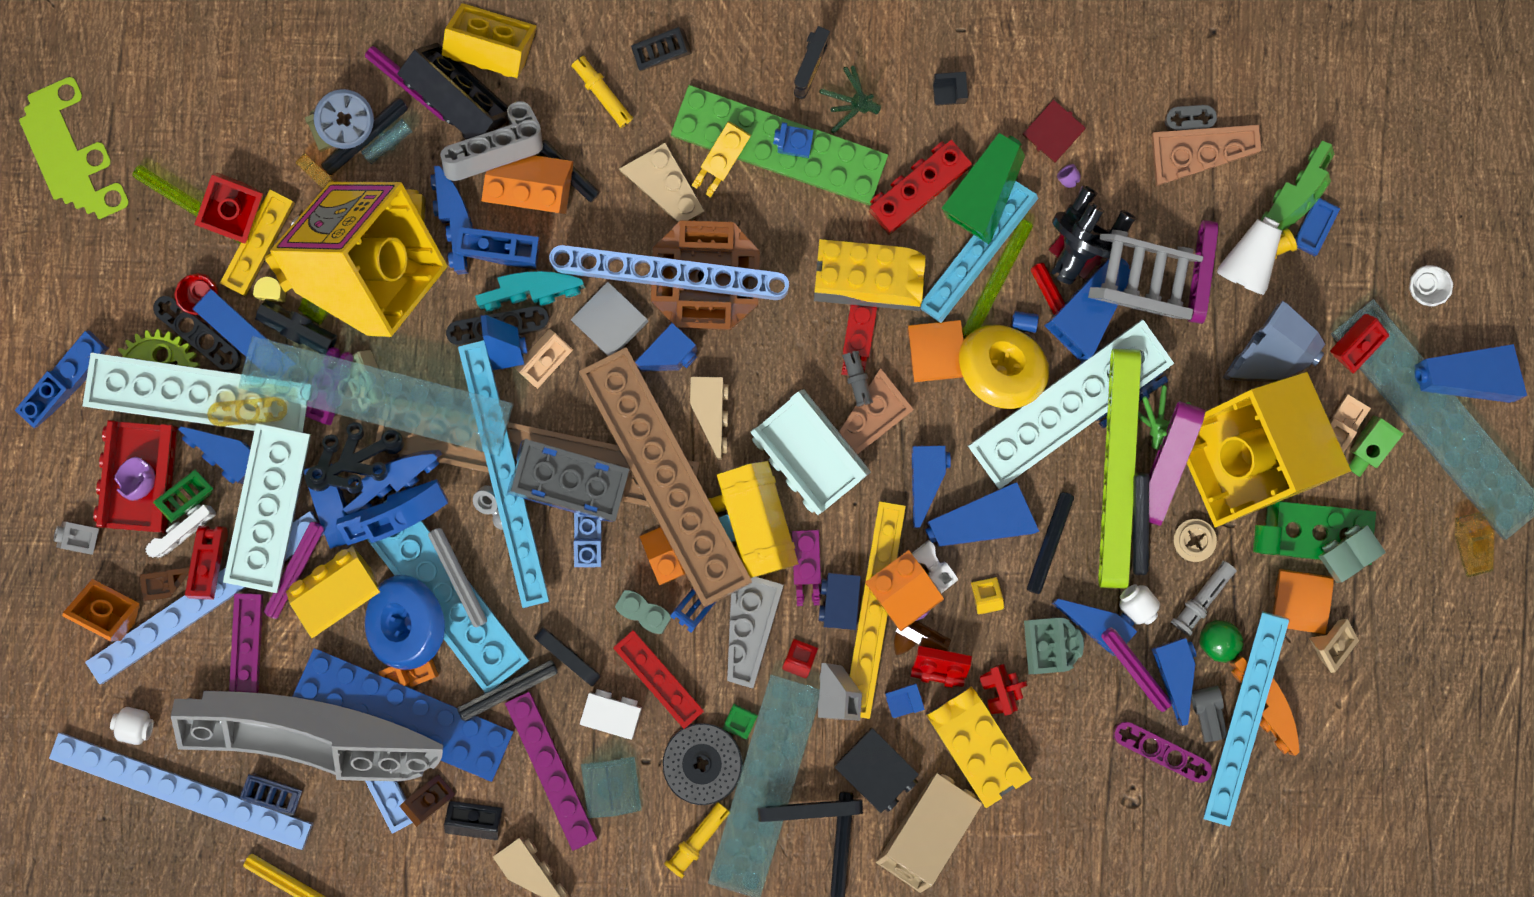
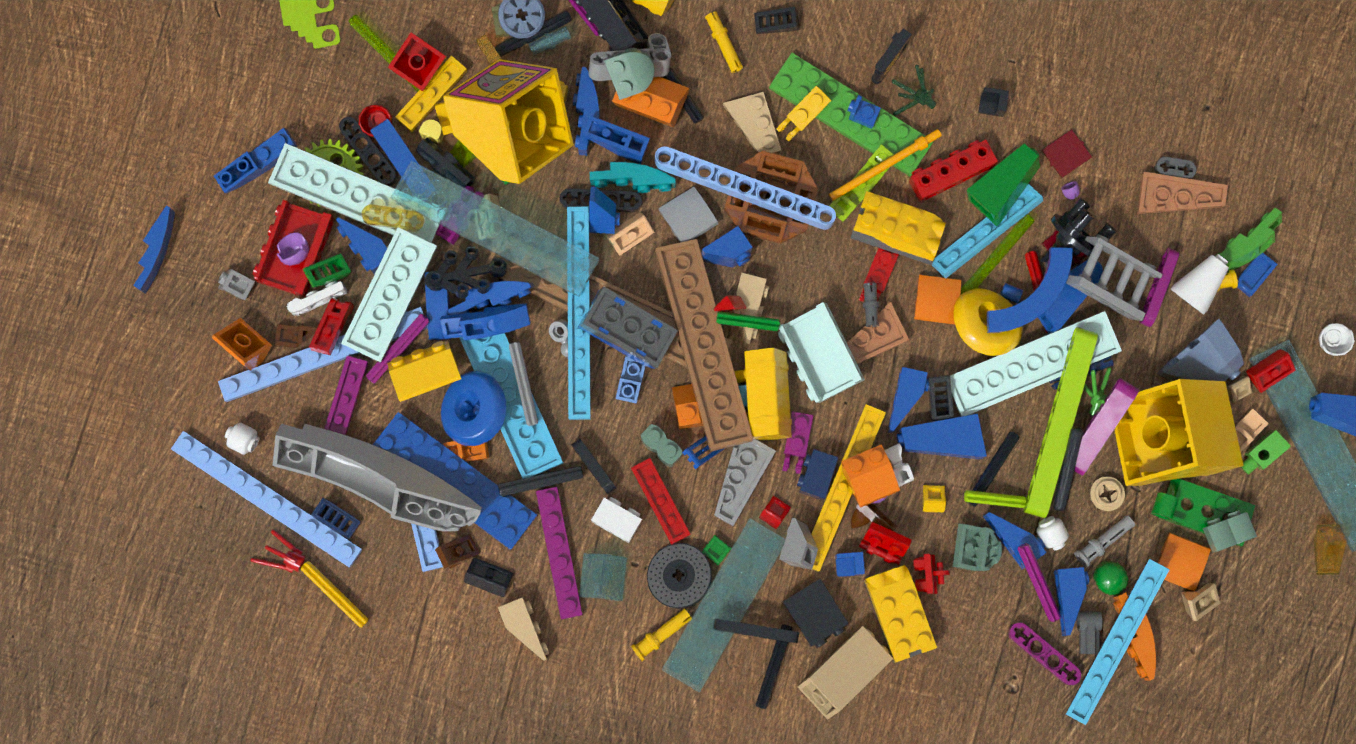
camera: 10 degrees right, 5 degrees down
(231, 858) = (293, 560): none -> red plant
(494, 162) = (630, 72): none -> sand green slope
(686, 419) = (730, 303): none -> red slope
(712, 436) = (748, 321): none -> green axle
(813, 227) = (849, 202): none -> lime slope
(872, 164) = (920, 144): none -> light orange bar
(974, 492) = (932, 397): none -> black slope
(1061, 580) = (994, 499): none -> lime axle
(1062, 325) = (1040, 300): none -> blue tile
(1325, 373) = (1239, 388): none -> tan slope

